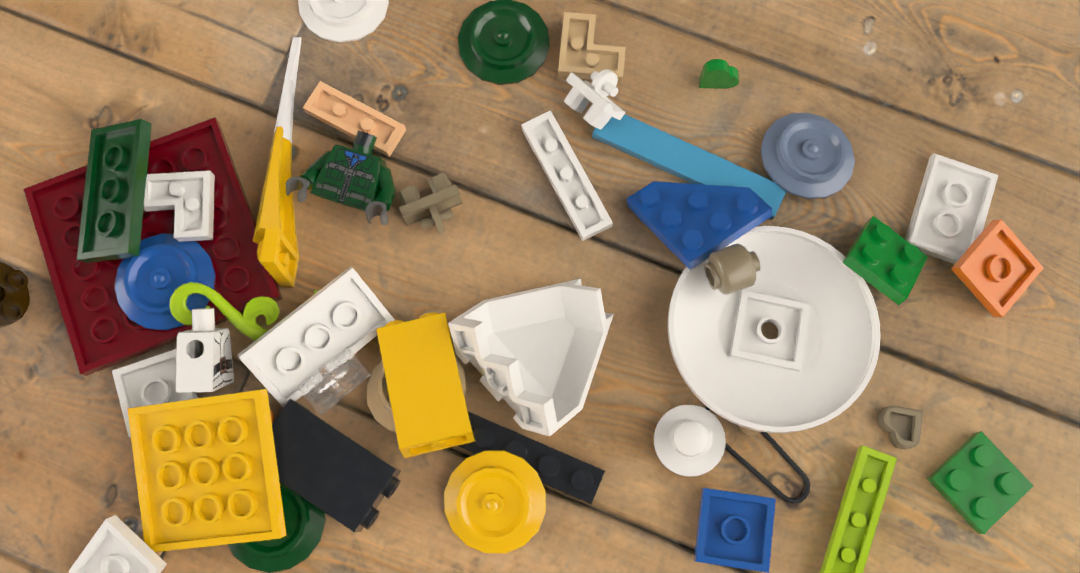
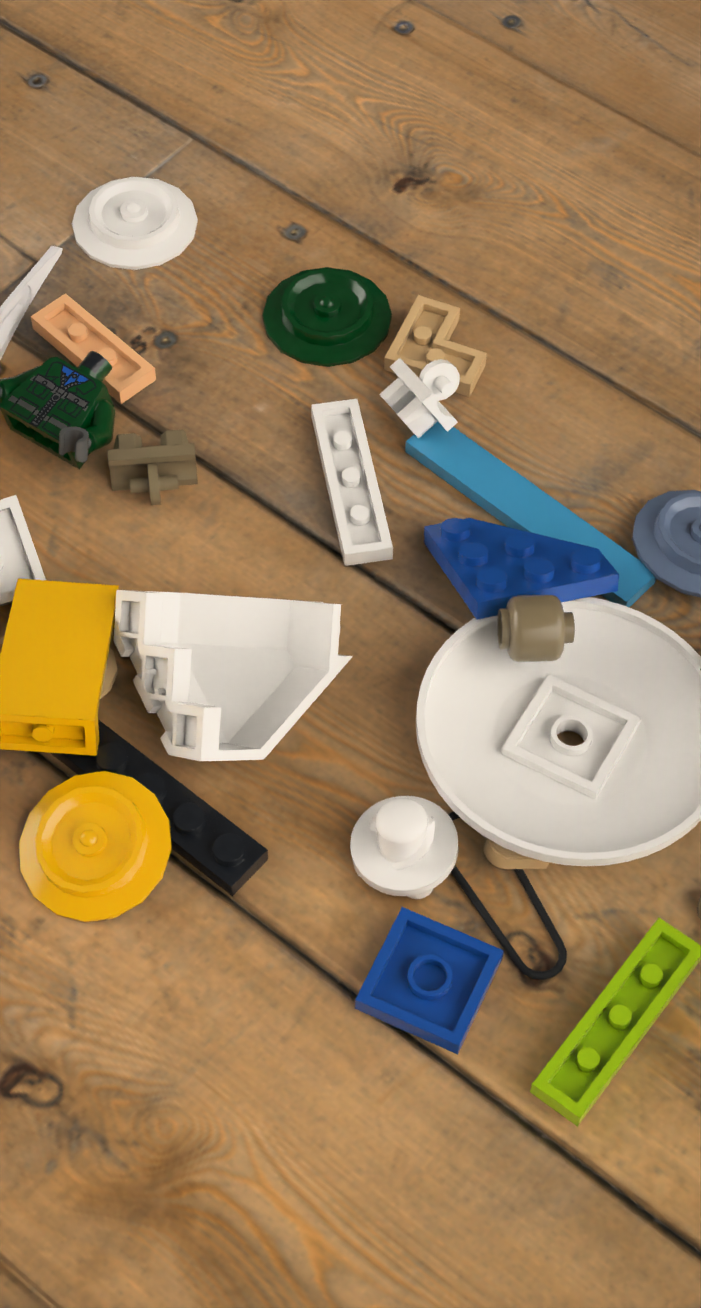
camera: 15 degrees right, 20 degrees down
(718, 75) = (604, 417): green tile -> none

